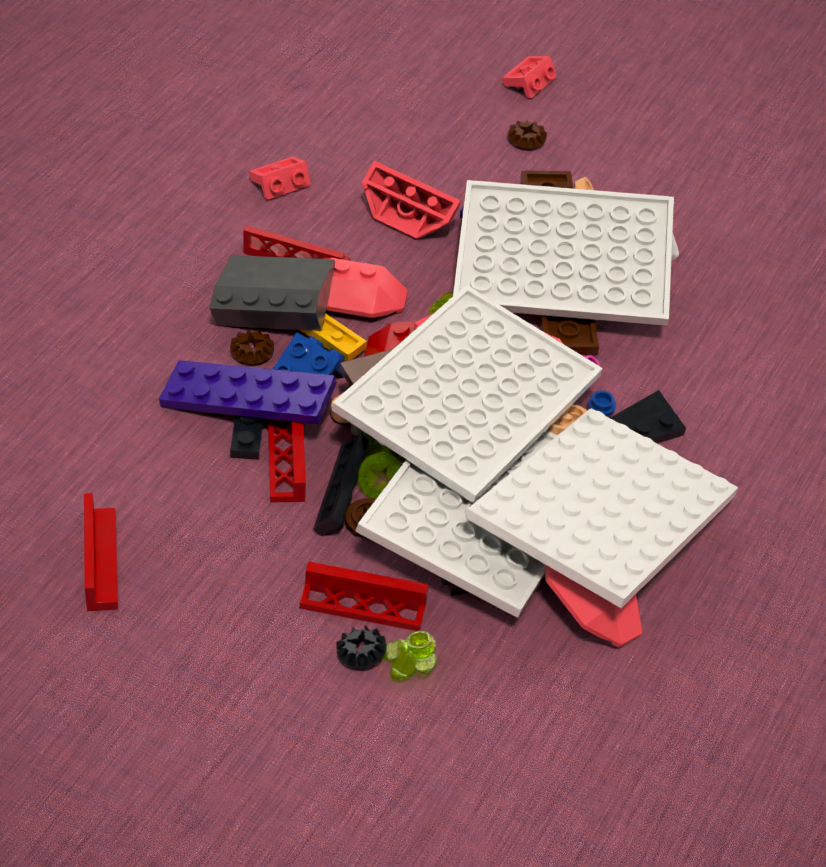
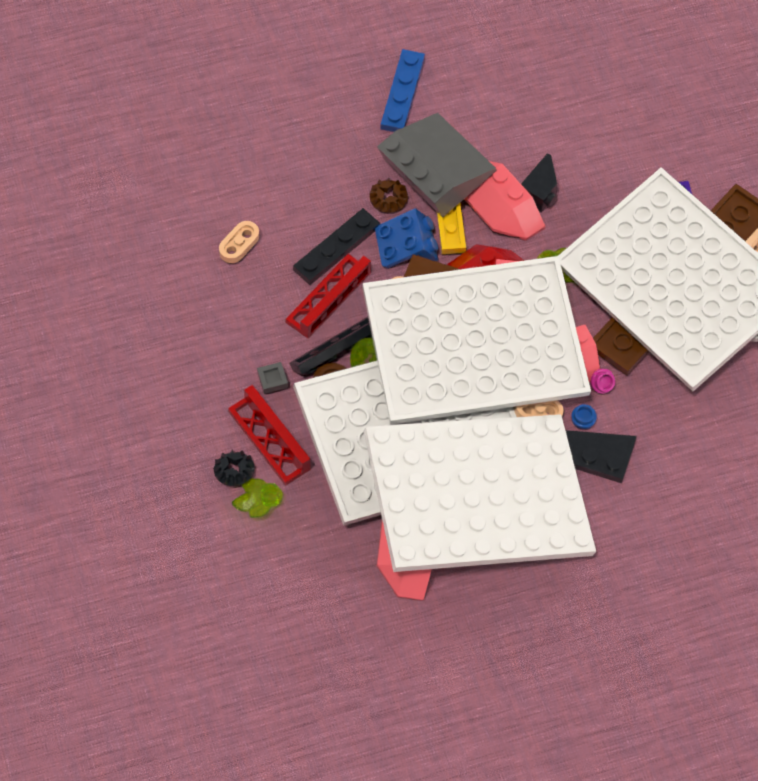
camera: 45 degrees right, 15 degrees up
(100, 556) = (139, 281): red fence -> none
(159, 463) = (236, 242): none -> light nougat plate
(175, 265) = (402, 90): none -> blue plate
(248, 391) = (342, 230): dark purple plate -> none
(268, 244) = (493, 137): red fence -> none
(281, 177) = (549, 66): coral bracket -> none
(313, 548) = (272, 377): none -> dark grey plate
(375, 252) = (542, 183): none -> black slope
(407, 202) = (614, 151): coral wedge -> none

